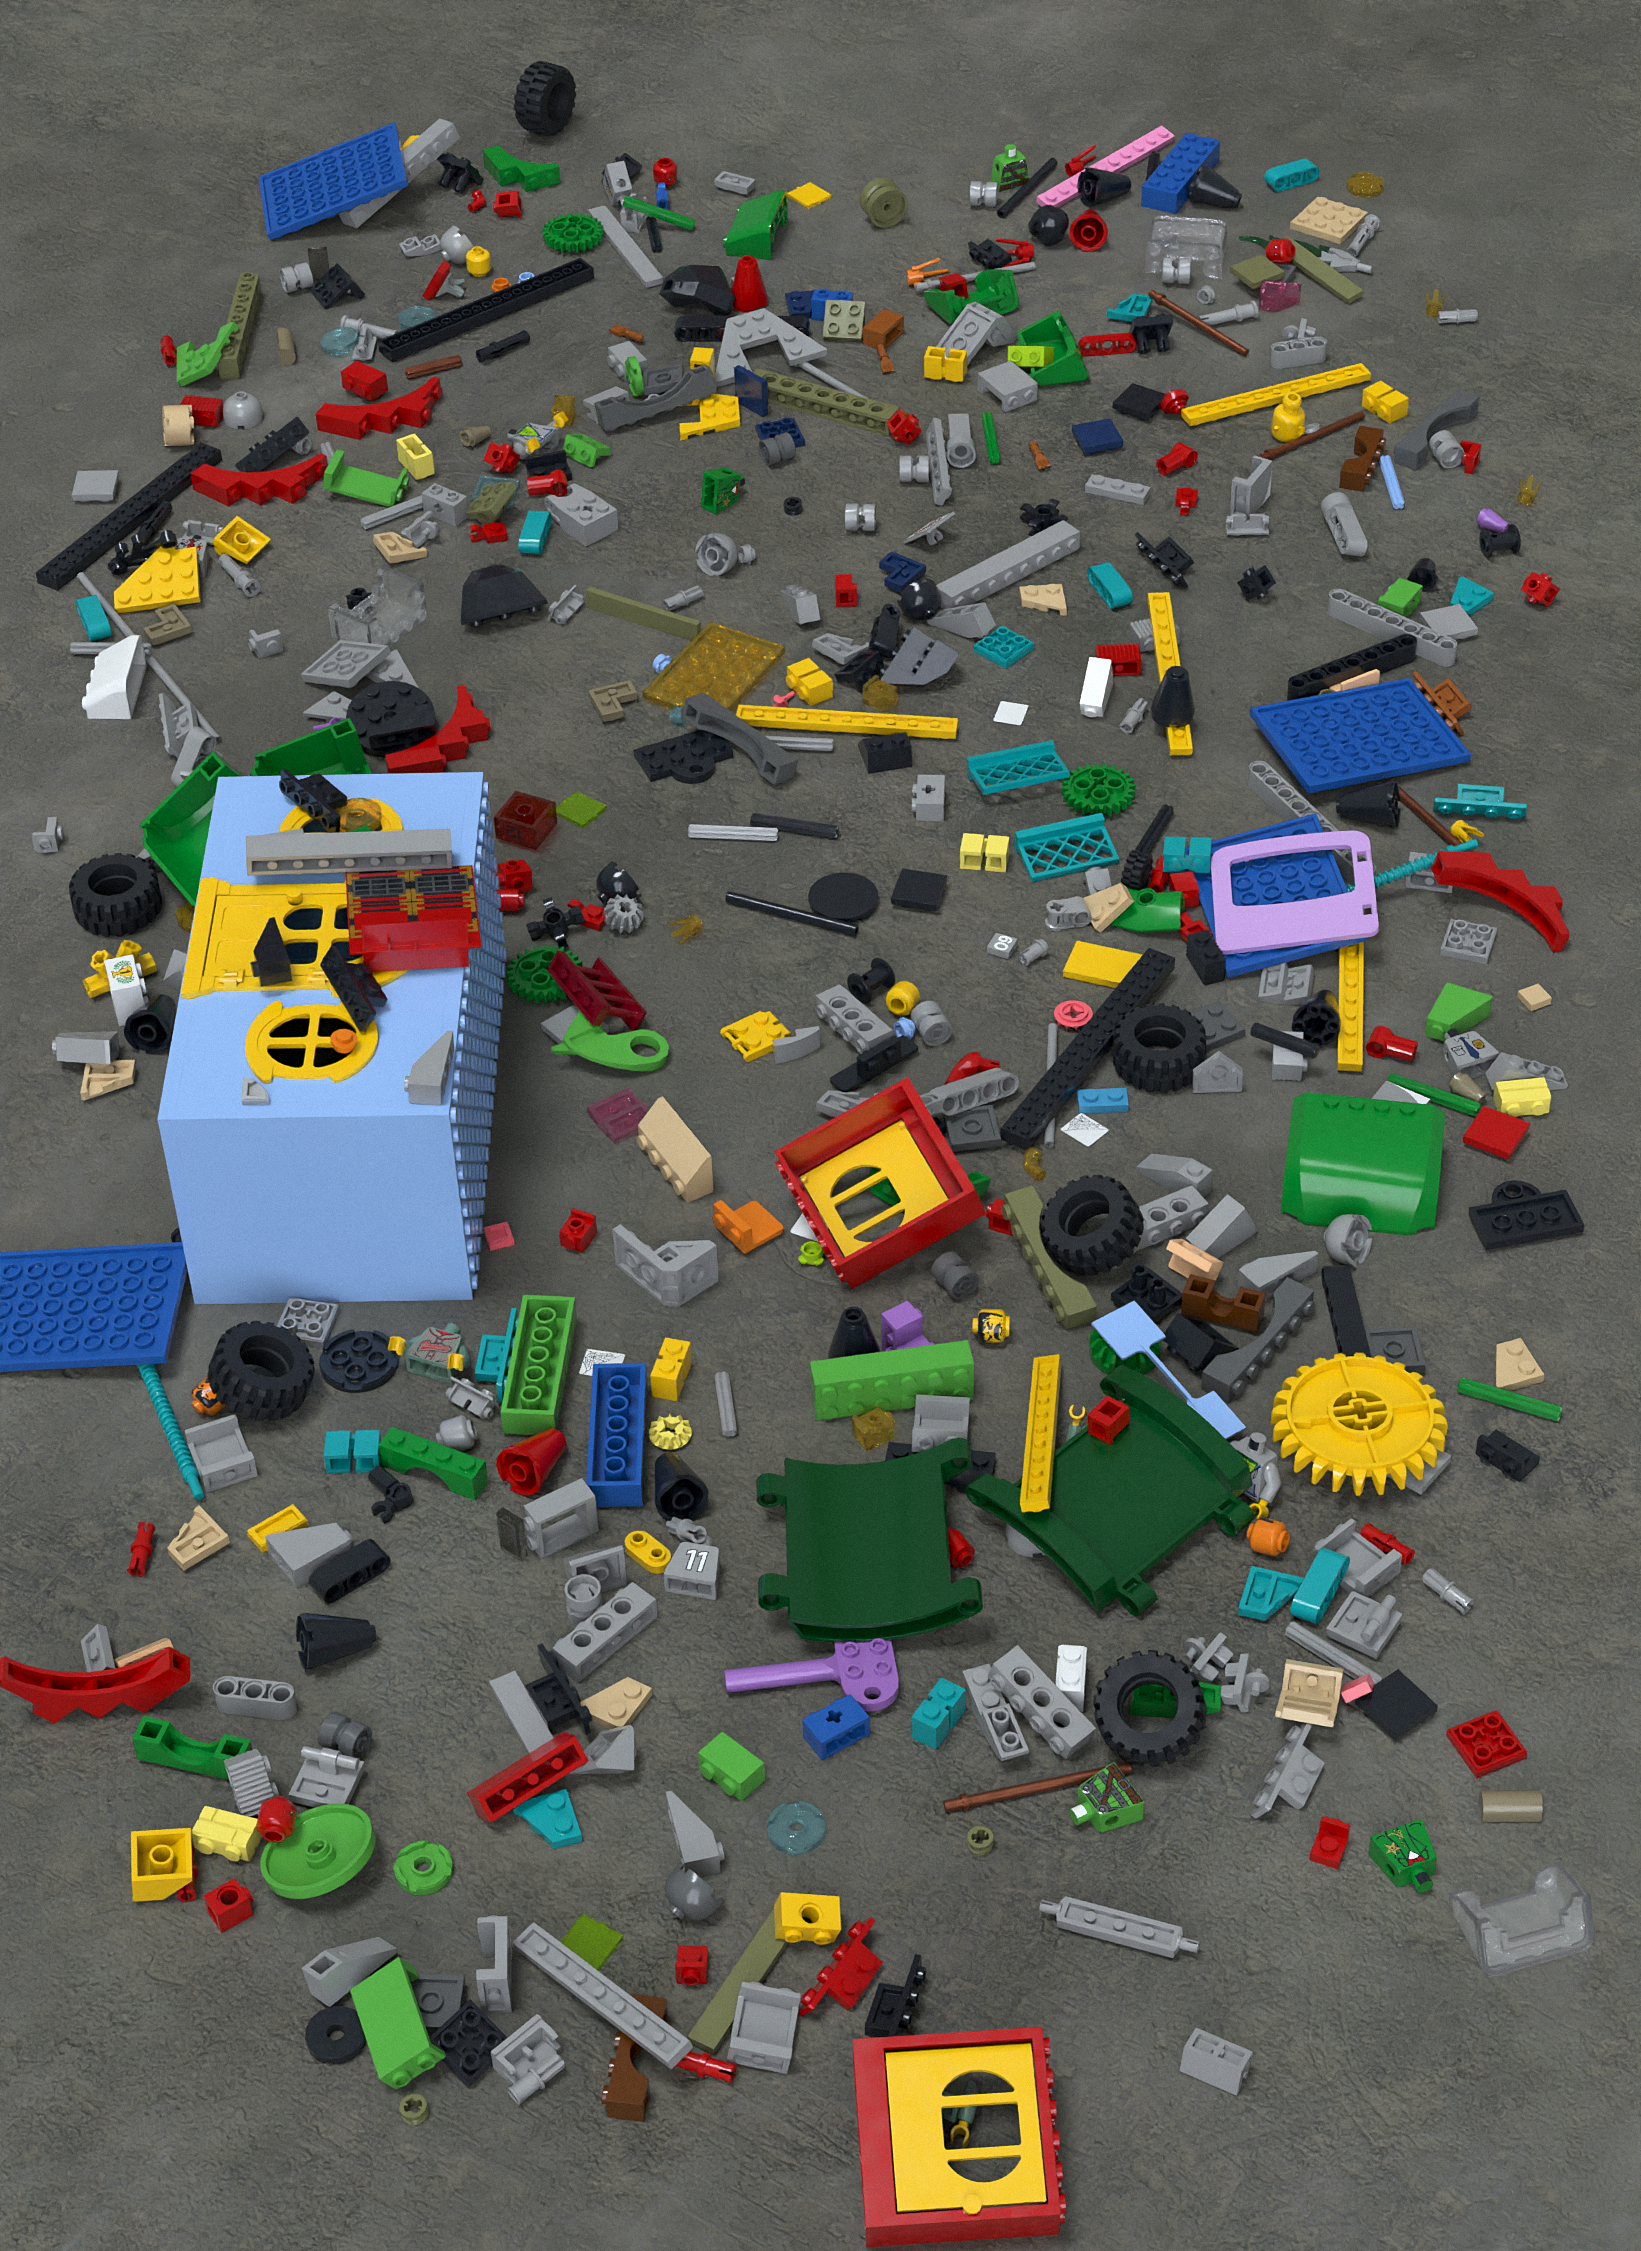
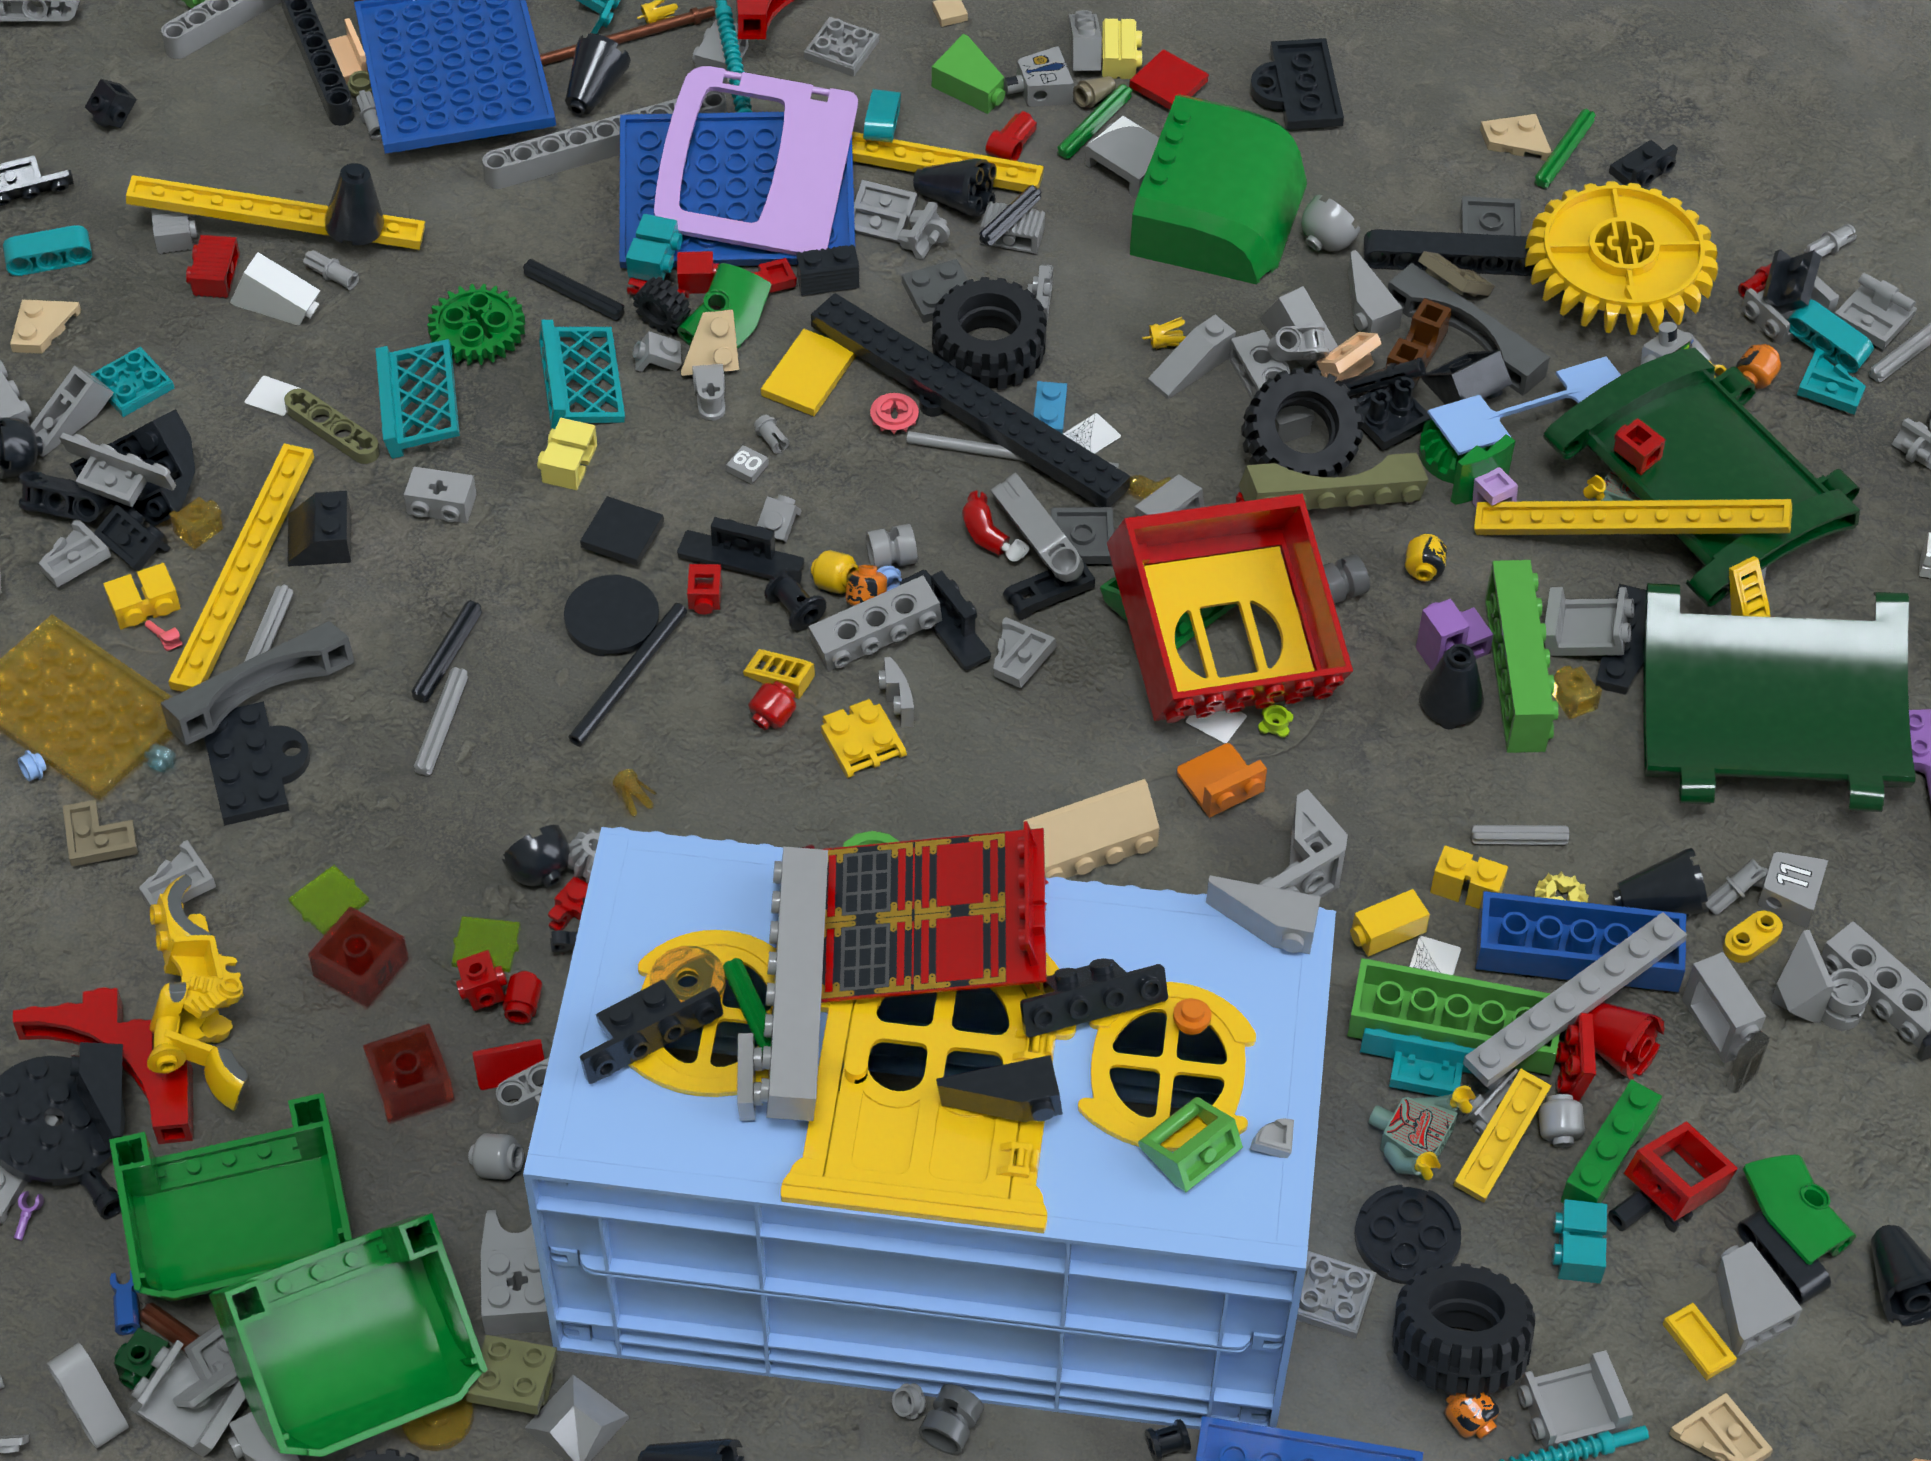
camera: 85 degrees left, 10 degrees up
(236, 1053) = (1199, 1154): none -> bright green tile
(392, 1510) = (1676, 1195): none -> red window
(399, 1560) = (1797, 1207): none -> green panel
(438, 1398) = (1502, 1135): none -> yellow plate
(487, 755) = (188, 1009): none -> yellow piece
(500, 1430) = (1577, 1057): none -> red tile
(549, 1418) = (1574, 997): none -> light grey plate
(553, 883) = (483, 934): none -> clear neon green piece
(581, 740) = (184, 863): none -> light grey wing
(622, 1324) = (1389, 922): none -> yellow brick
(771, 982) = (772, 705): none -> red head
(806, 987) = (801, 668): none -> yellow slope
(871, 934) = (704, 594): none -> red brick
(888, 1010) = (864, 584): none -> orange head
(895, 636) = (112, 473): none -> light grey bracket
(911, 950) = (738, 548): none -> black bracket
(951, 963) = (779, 516): none -> light grey bracket
(964, 1524) = (1755, 593): none -> yellow slope
(989, 742) = (333, 424): none -> olive beam
(1009, 1171) = (1172, 496): none -> light grey hinge
(1073, 1361) = (1494, 488): none -> lavender panel
(1086, 1349) = (1479, 462): none -> green slope
(1174, 1279) = (1384, 377): none -> black pin
(1186, 1217) = (1305, 343): none -> light grey piece
(1196, 1151) = (1162, 336): none -> yellow piece
(1268, 1007) = (925, 231): none -> light grey hips
(1304, 1323) = (1459, 279): none -> dark tan plate
(1364, 1537) = (1791, 280): none -> black bracket
(1383, 964) = (882, 115): none -> teal beam

